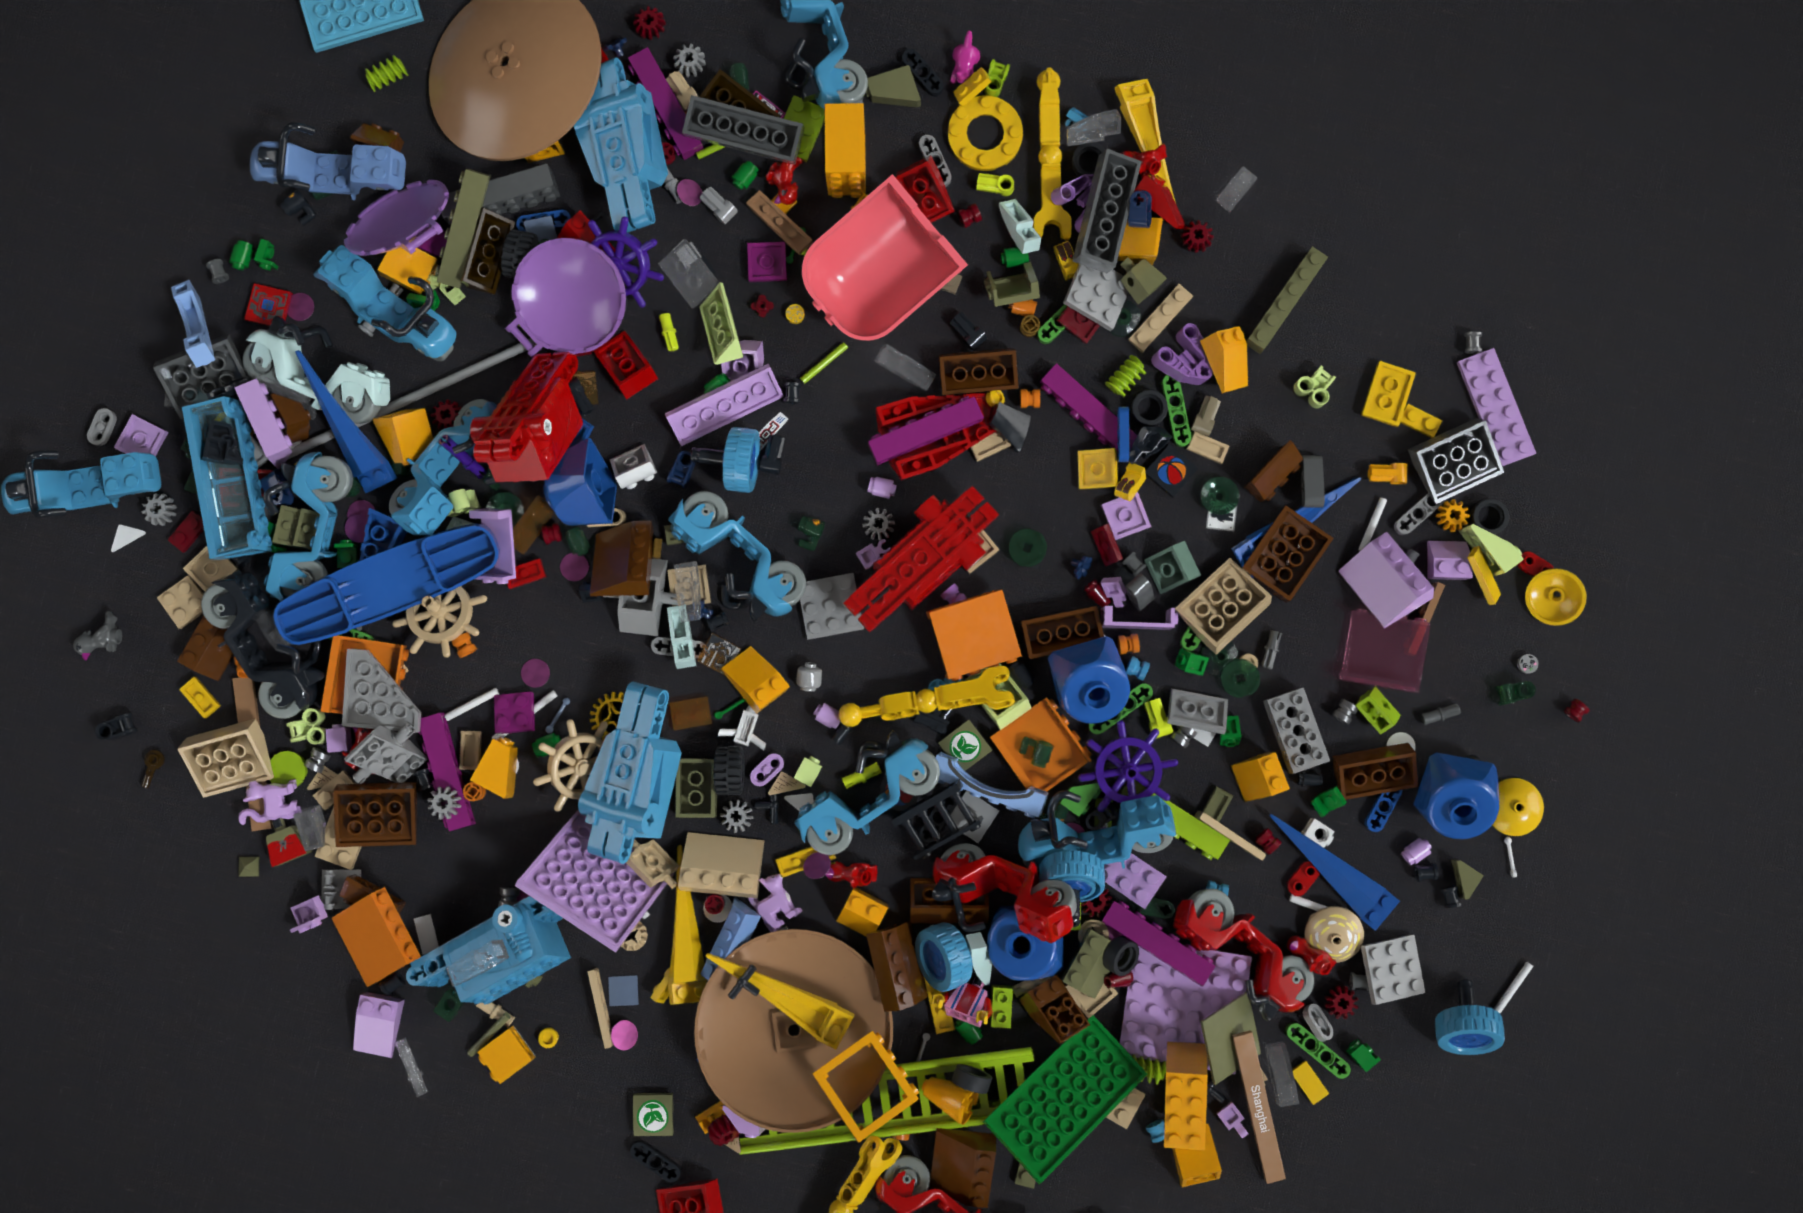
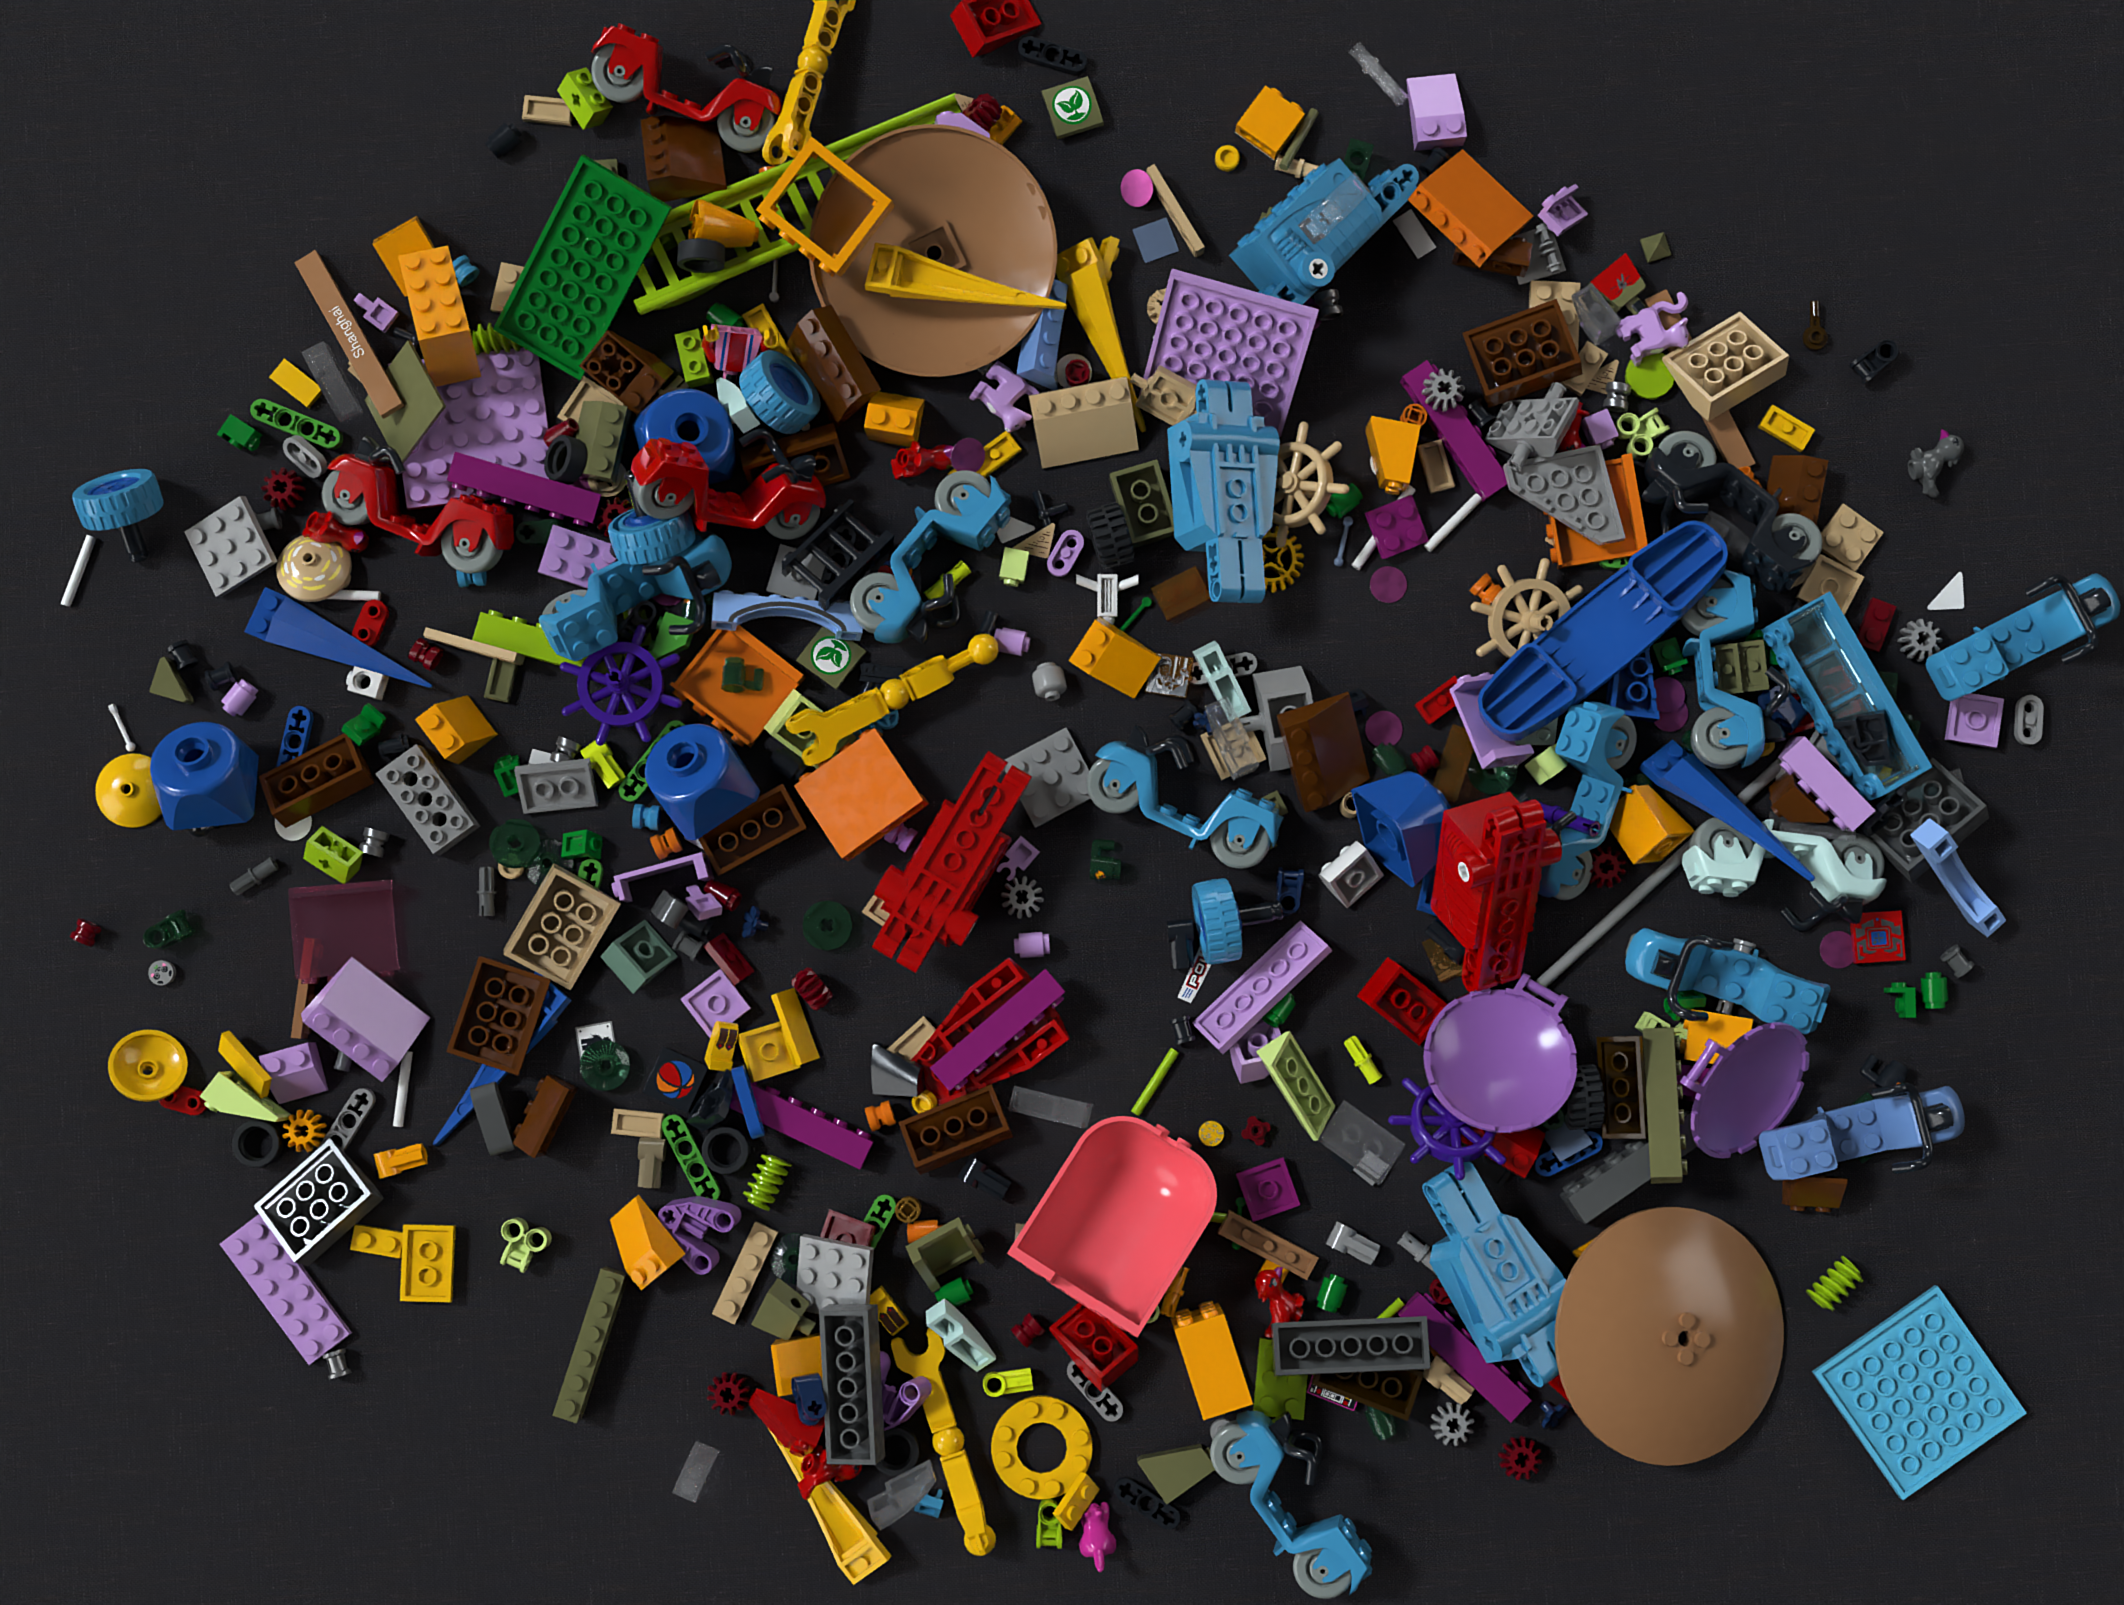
camera: 165 degrees right, 0 degrees up
(657, 548) = (1287, 781): pearl gold tile -> none
(689, 192) = (1395, 1249): flat silver sticker -> none
(741, 811) = (1079, 493): light grey gear -> none
(742, 982) = (1011, 286): black piece -> none
(1052, 503) = (811, 988): none -> dark red gear
(1072, 481) = (795, 1026): none -> yellow tile

